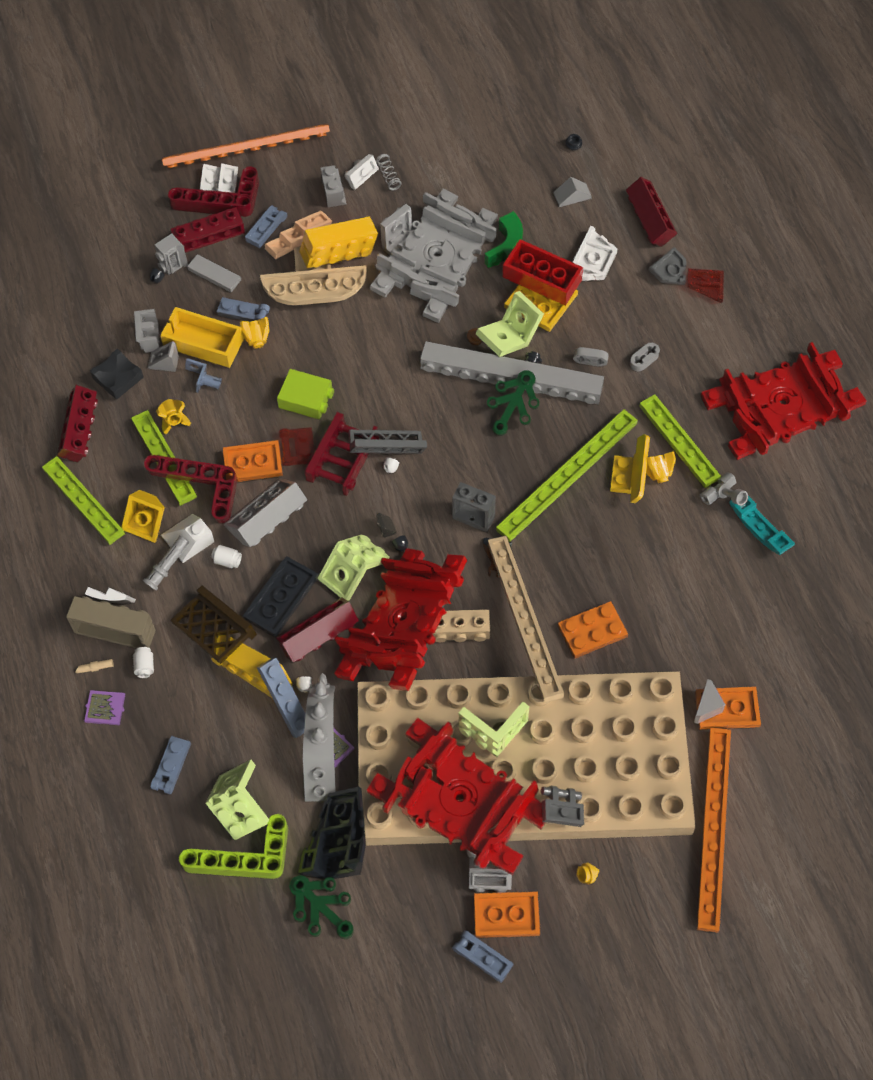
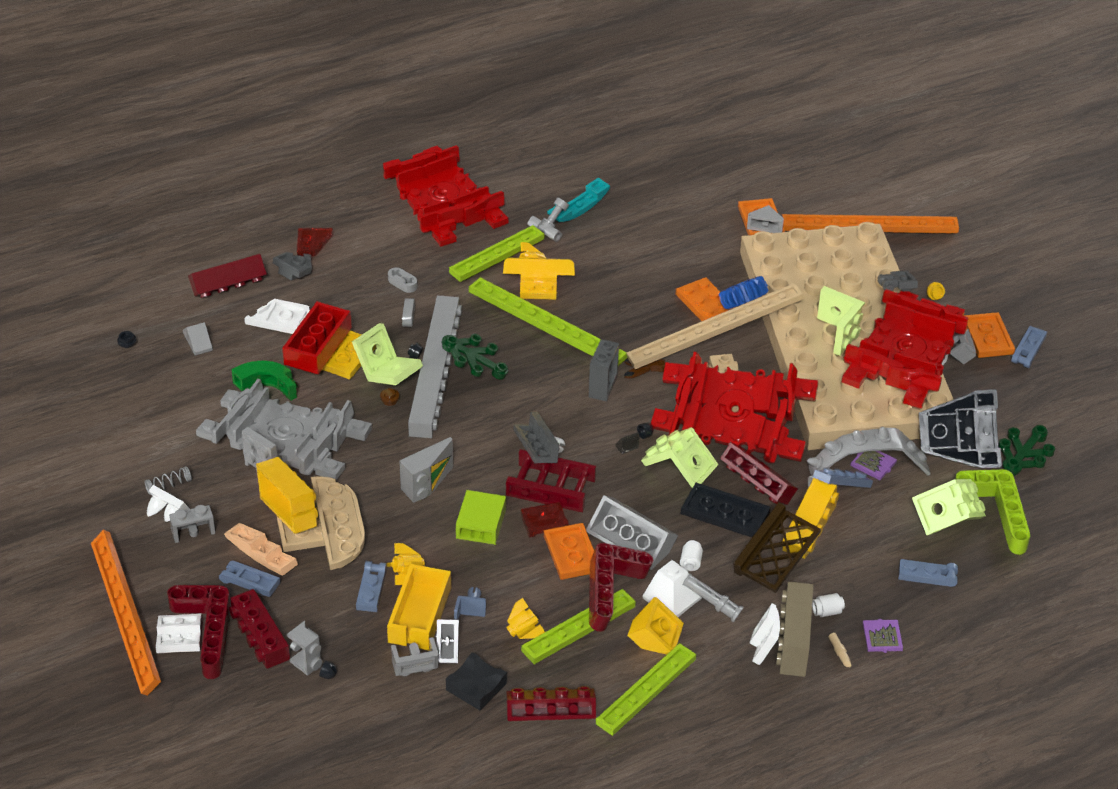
camera: 100 degrees left, 20 degrees down
(214, 273) = (323, 613): light grey tile -> none
(359, 351) = (426, 469): none -> light grey slope
(570, 649) = (743, 292): none -> blue gear

